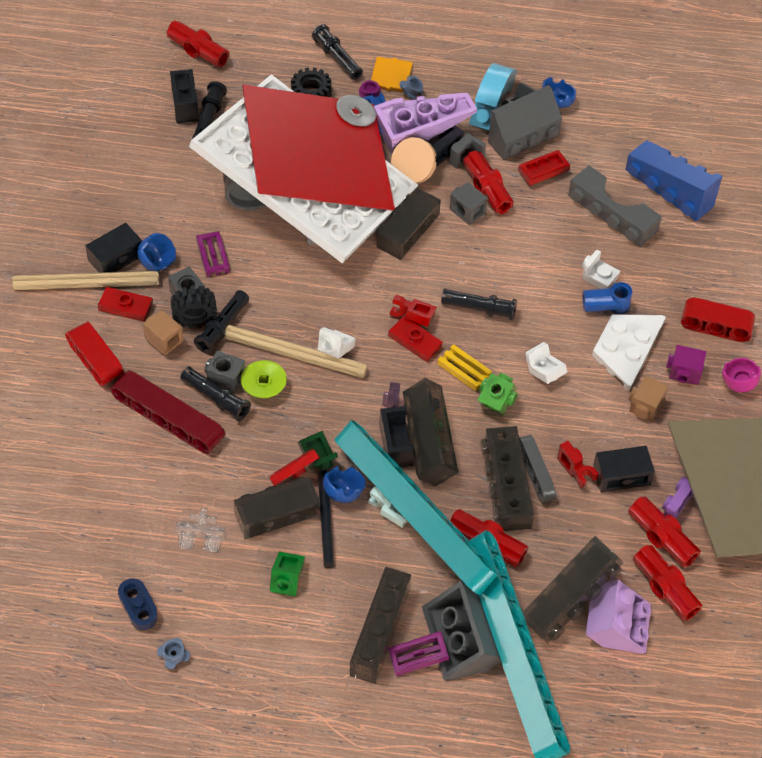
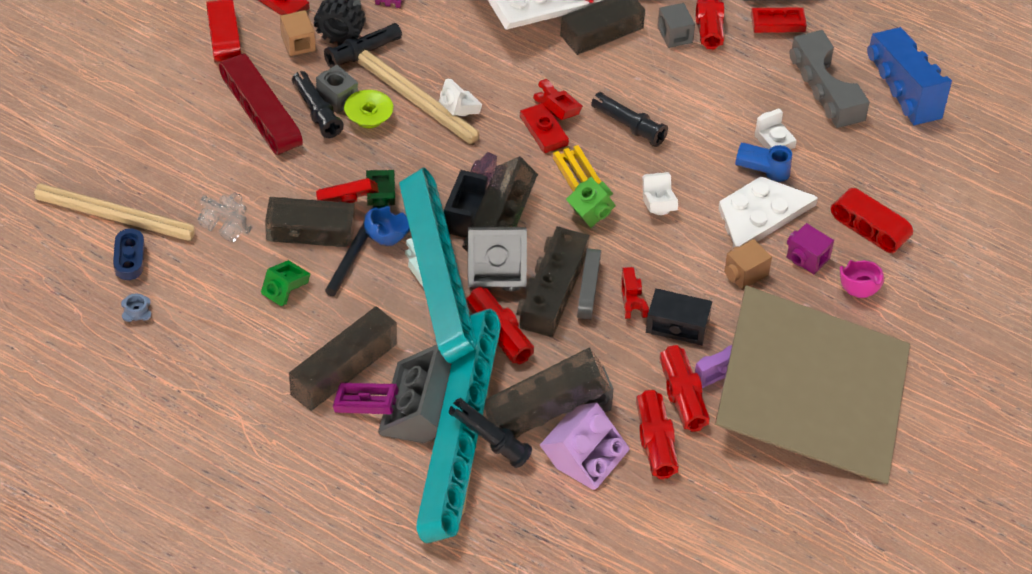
camera: 25 degrees right, 5 degrees down
(98, 568) = (114, 212): none -> tan axle
(458, 479) = (497, 257): none -> plate
(555, 645) = (500, 439): none -> black pin

